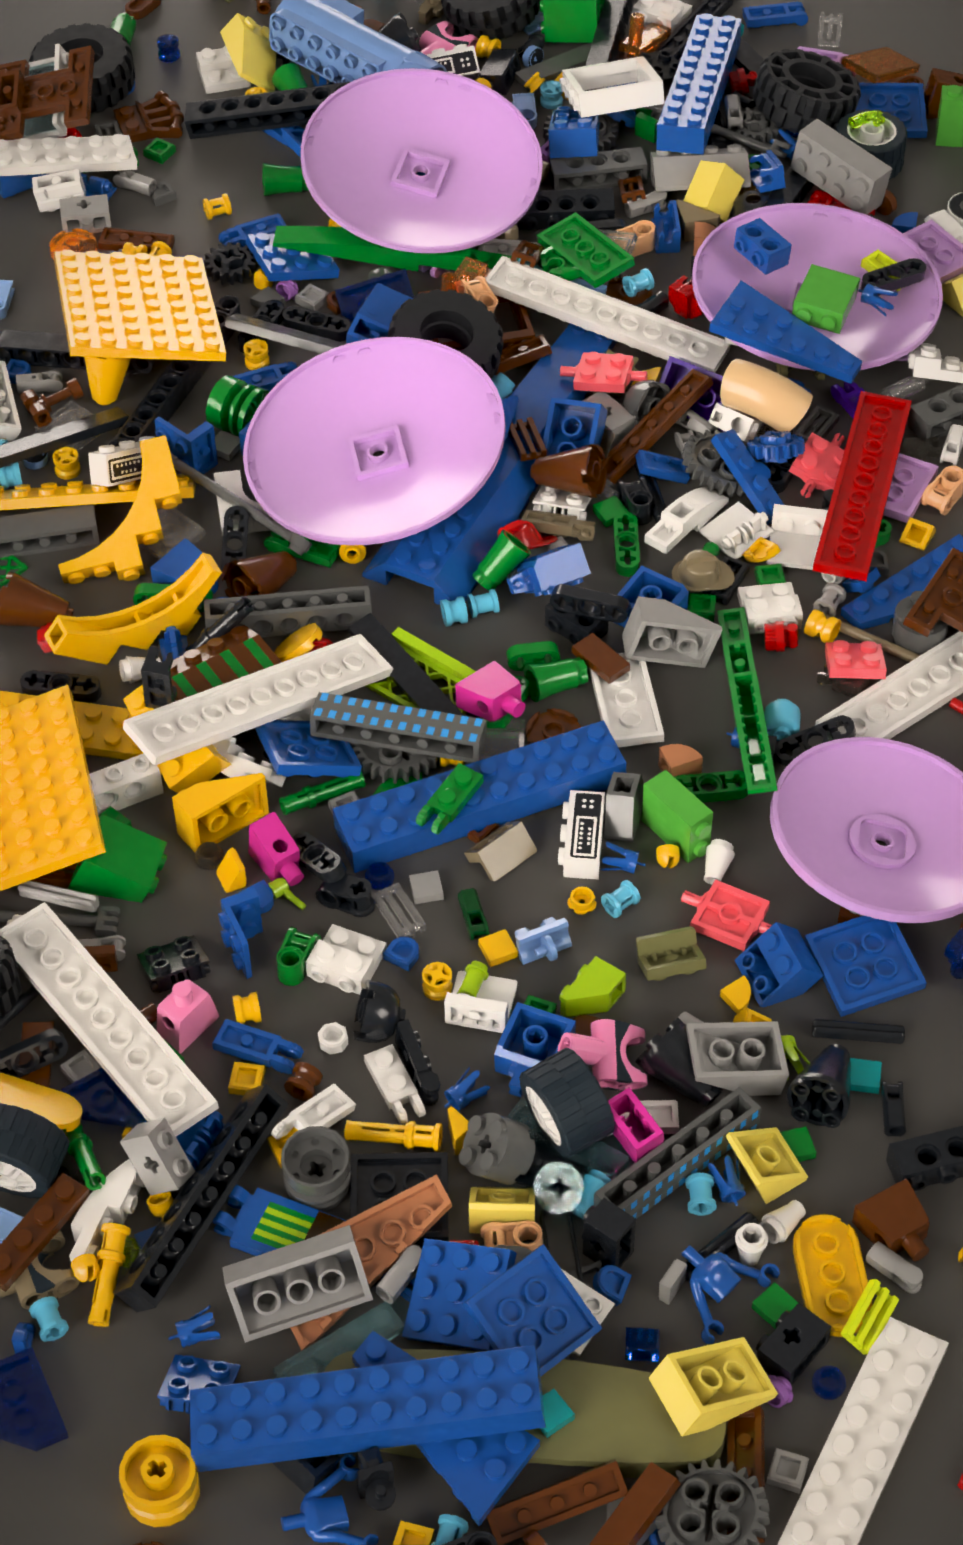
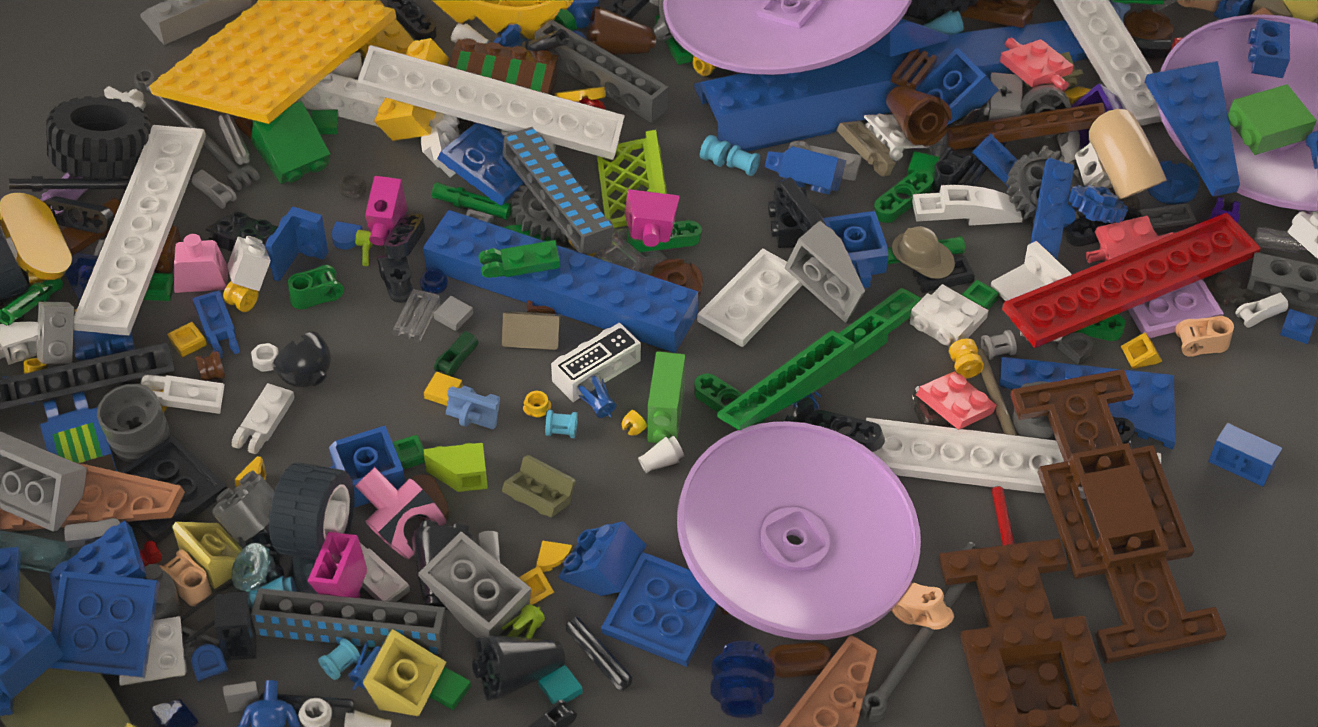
camera: 45 degrees right, 0 degrees up
(104, 956) = (204, 195): reddish brown tile -> none
(157, 680) = (423, 34): black hinge -> none
(219, 808) = (383, 153): yellow slope -> none
(232, 872) = (352, 207): yellow slope -> none
(232, 974) = (248, 263): none -> white brick
(345, 959) = (341, 315): white plate -> none
(402, 952) = (383, 342): blue tile -> none
(405, 672) = (624, 164): black tile -> none
(410, 1135) = (201, 427): yellow pin -> none
(416, 1063) = (289, 415): black hinge -> none
(432, 975) = (375, 369): yellow wheel -> none
(457, 1095) = (285, 457): blue piece -> none
(475, 975) = (389, 392): lime pin -> none
(486, 1011) = (380, 408): white bracket -> none
(501, 560) = (794, 131): green plant -> none
(527, 534) = (824, 133): red piece -> none
(531, 654) = (728, 219): green beam -> none
(555, 677) = (721, 244): green plant -> none
(556, 1413) = (42, 698): teal tile -> none
(601, 658) = (766, 254): reddish brown tile -> none
(623, 806) = (638, 364): dark grey slope -> none
(638, 282) = (1157, 21): medium azure bush -> none
(680, 760) = (727, 366): nougat brick -> none
(702, 605) = (898, 277): green tile -> none
(728, 914) = (619, 495): coral plate -> none
(736, 530) = (997, 245): white hinge -> none
(761, 551) = (994, 271): yellow tile -> none
(780, 636) = (922, 340): red piece -> none
(782, 718) = (841, 396): medium azure head -> none
(853, 585) = (1045, 352): blue plate -> none

